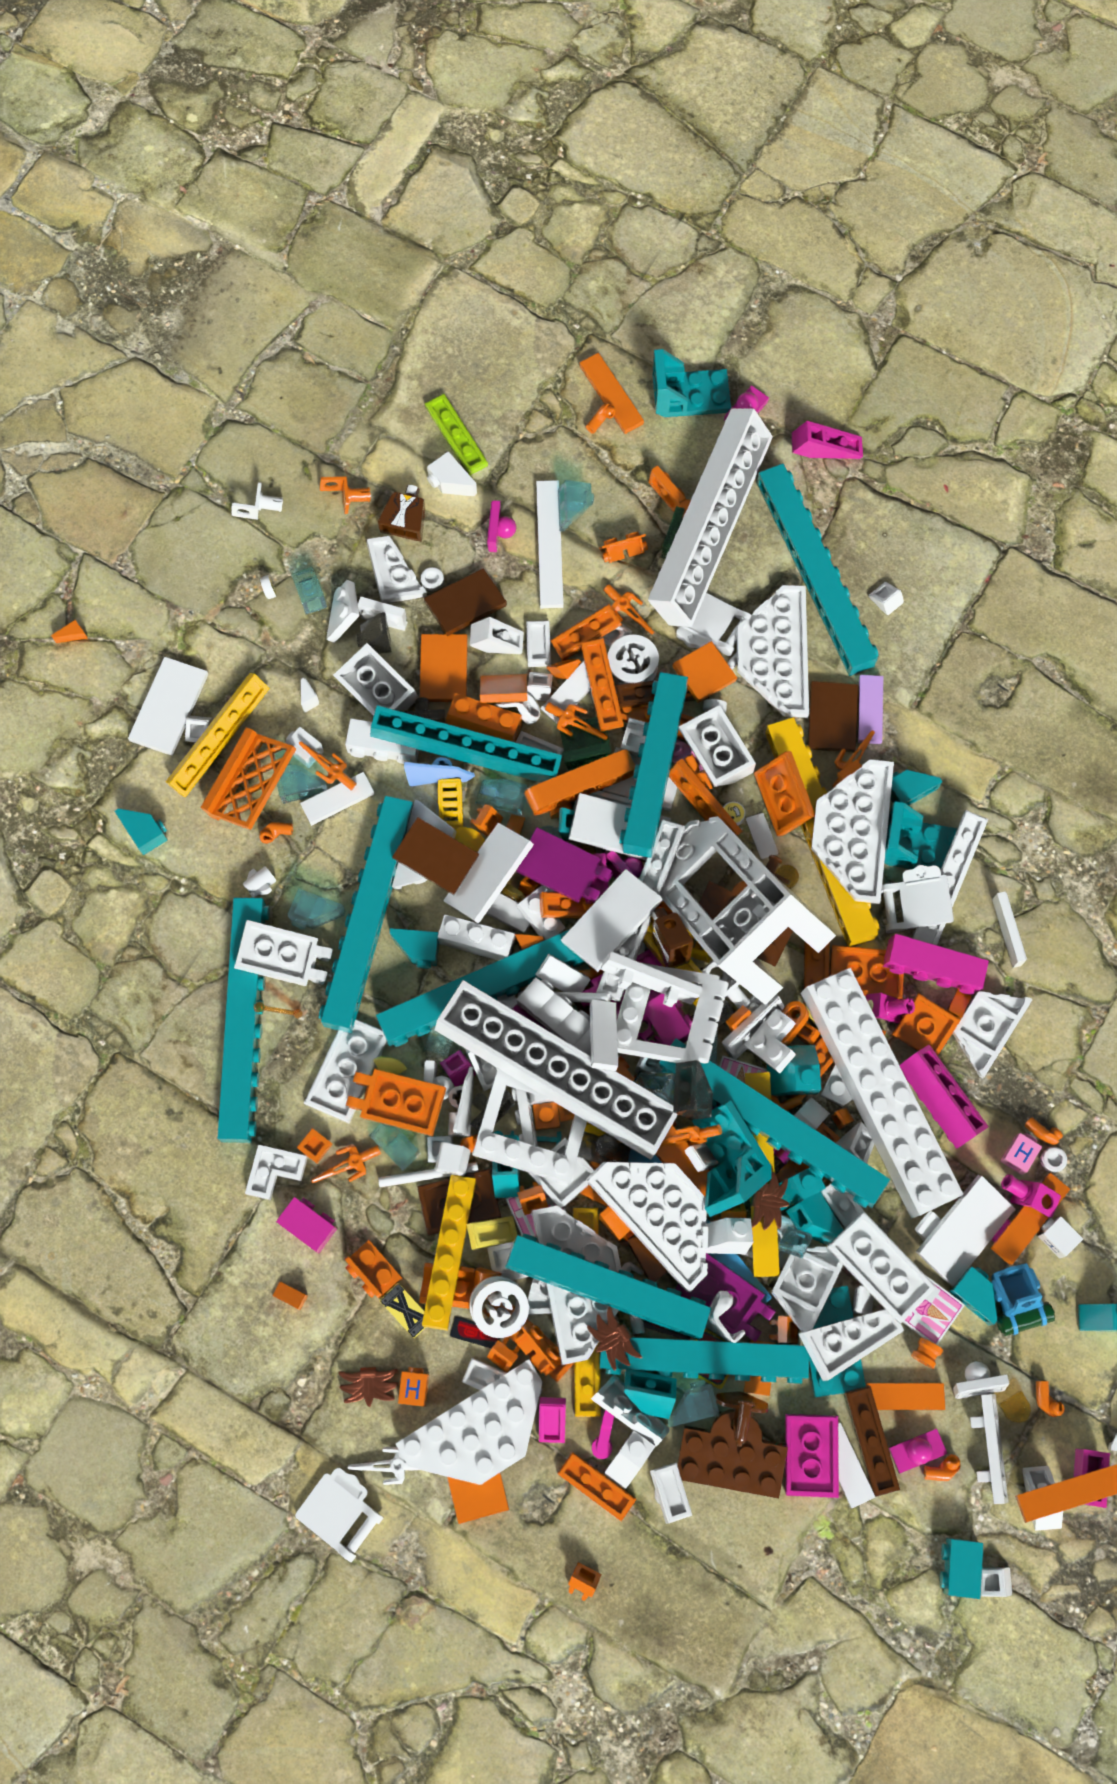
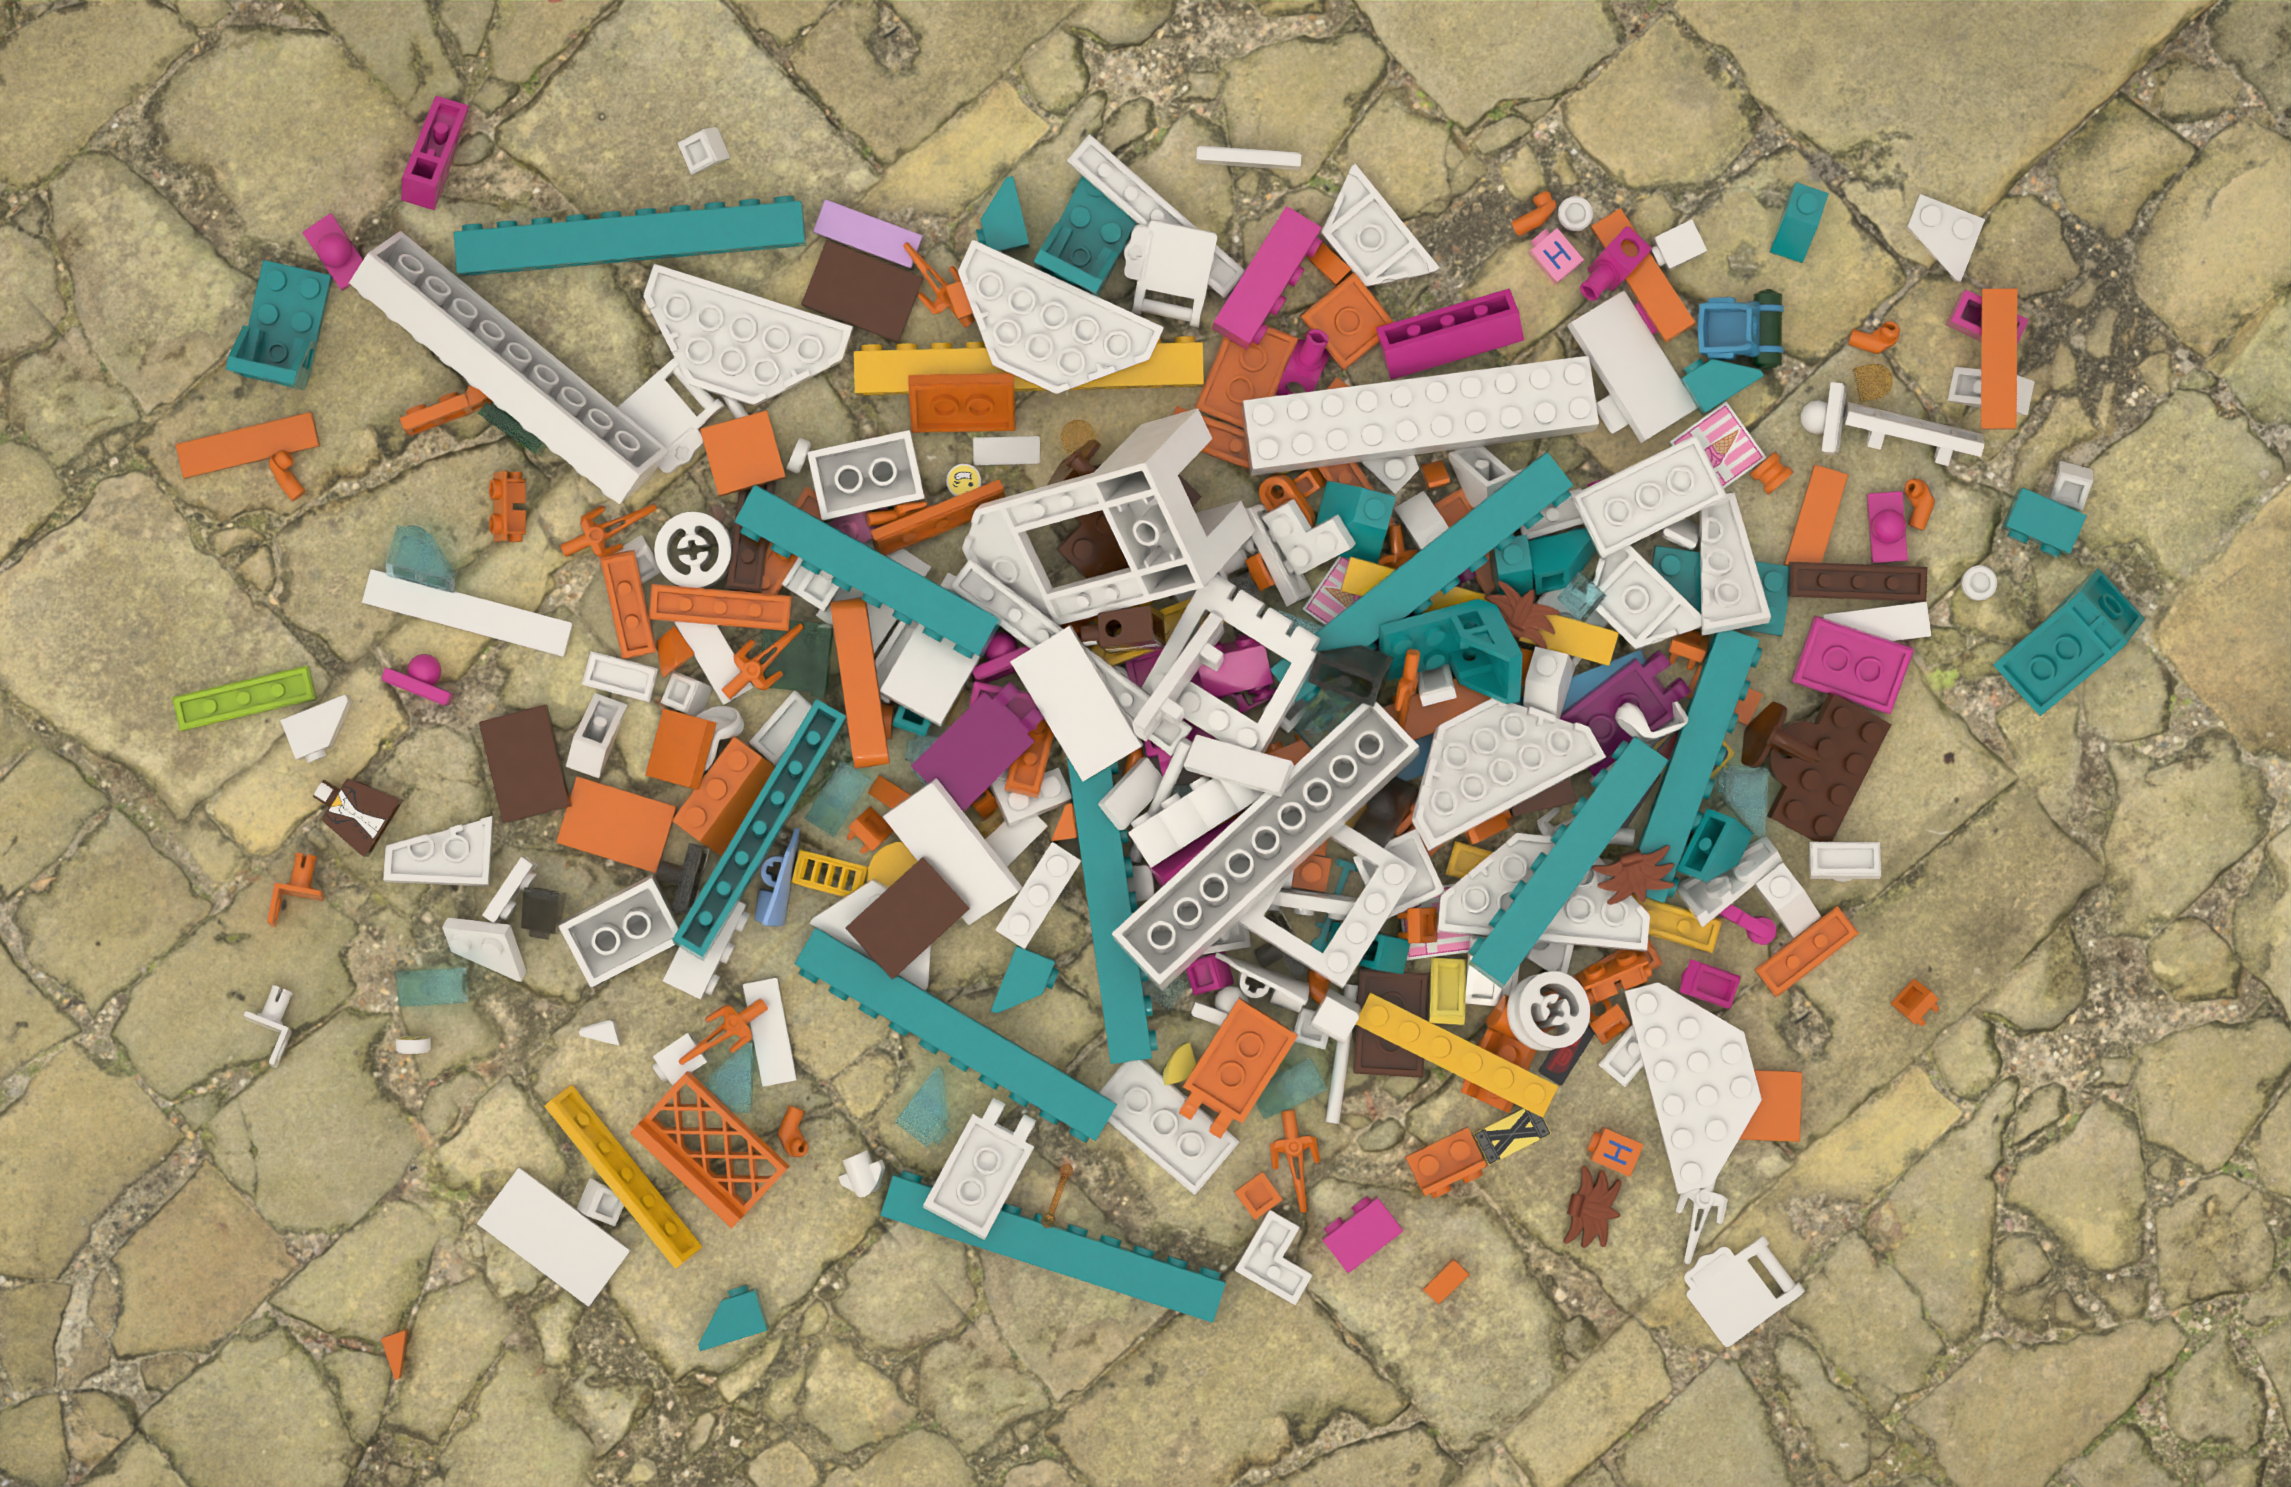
camera: 75 degrees left, 15 degrees up
(432, 579) = (471, 801): white tile -> none
(882, 1616) = (2070, 643): none -> teal bracket
(901, 1533) = (1978, 583): none -> white tile

